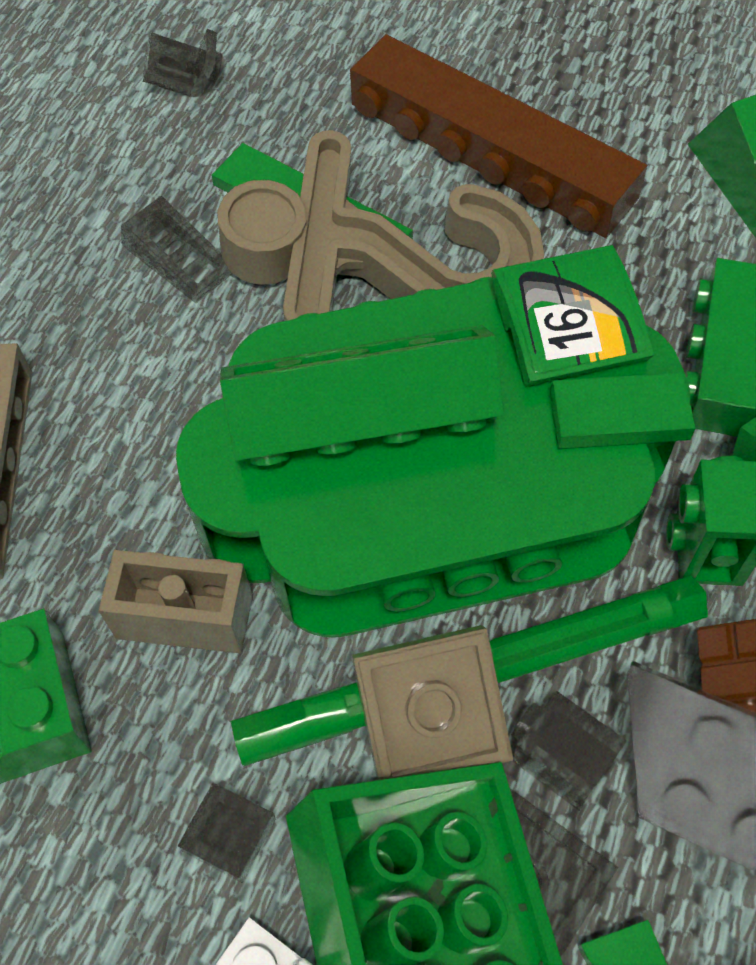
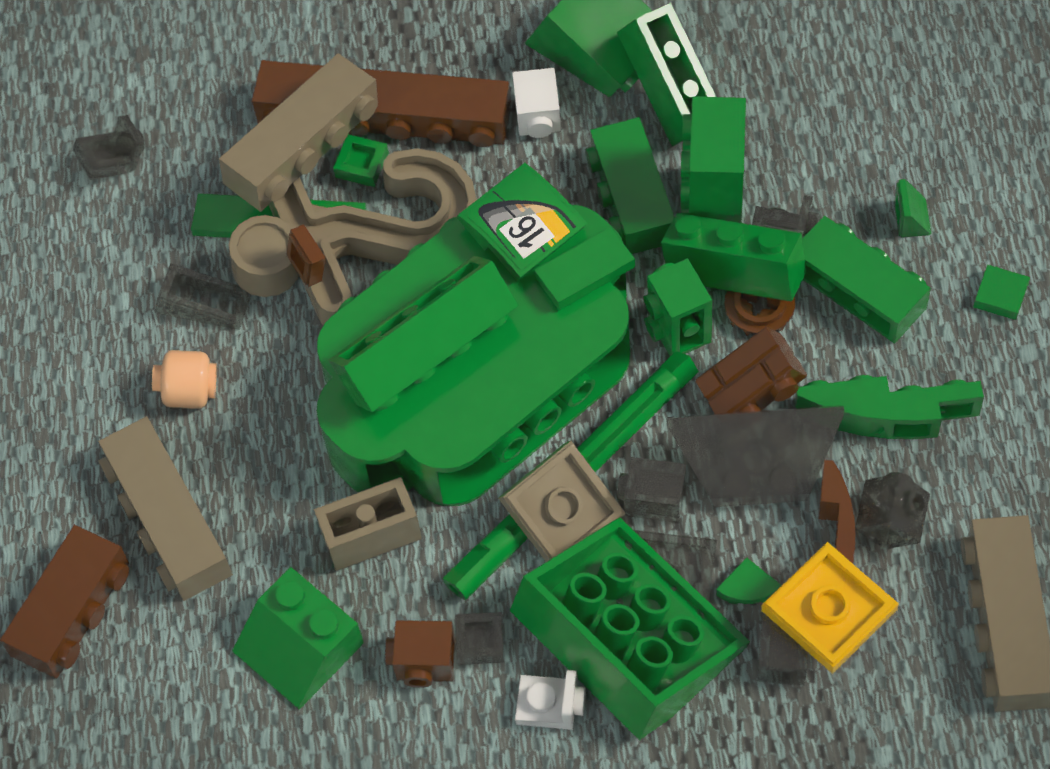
camera: 25 degrees left, 0 degrees up
(94, 326) = (185, 379): none -> light nougat head
(140, 811) = (421, 652): none -> reddish brown brick
(294, 243) = (305, 255): none -> reddish brown tile
(373, 110) = (299, 132): none -> dark tan brick
(431, 182) = (360, 160): none -> green plate
(668, 205) = (537, 102): none -> white brick

